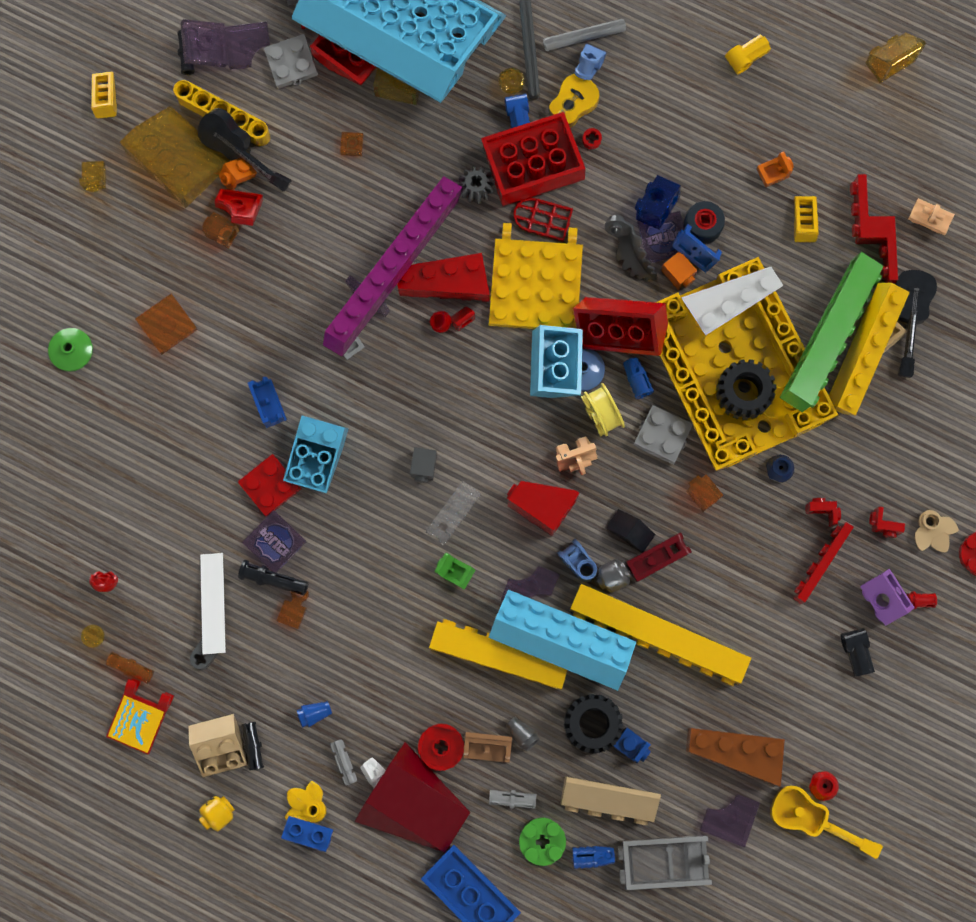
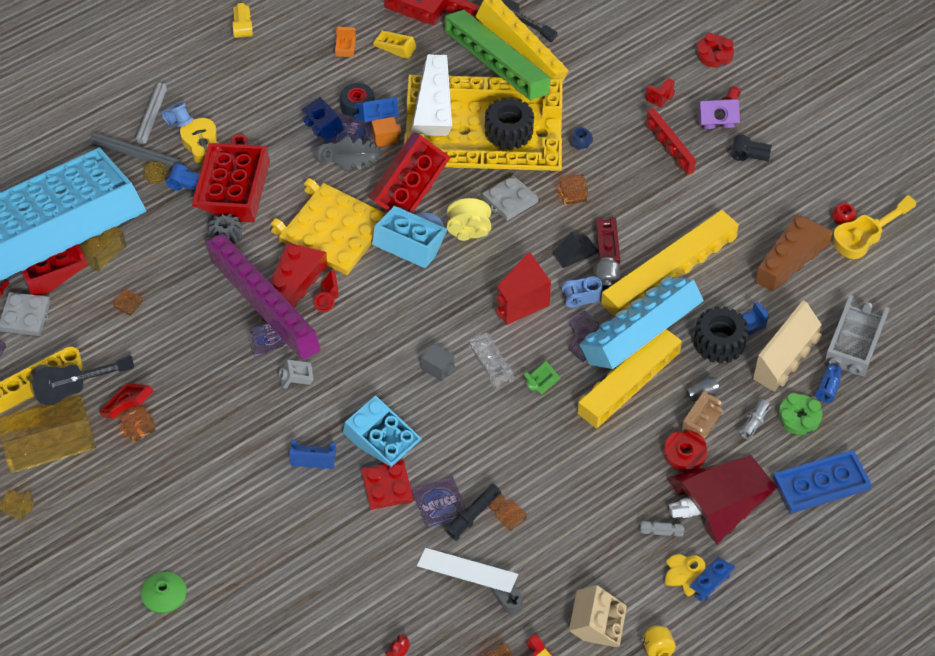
camera: 65 degrees left, 25 degrees down
(166, 324) = (192, 503): clear orange tile -> none
(236, 172) = (94, 393): orange bracket -> none
(252, 746) = (621, 594): black pin -> none
(313, 713) = (607, 534): blue cone -> none
(550, 214) = (283, 195): red window -> none
(577, 458) = (497, 257): light nougat hips -> none
(637, 378) = (454, 193): blue hinge -> none
(733, 821) = (843, 282): clear purple tile -> none
(820, 506) = (630, 120): red bracket -> none
(936, 535) = (682, 70): tan plate -> none

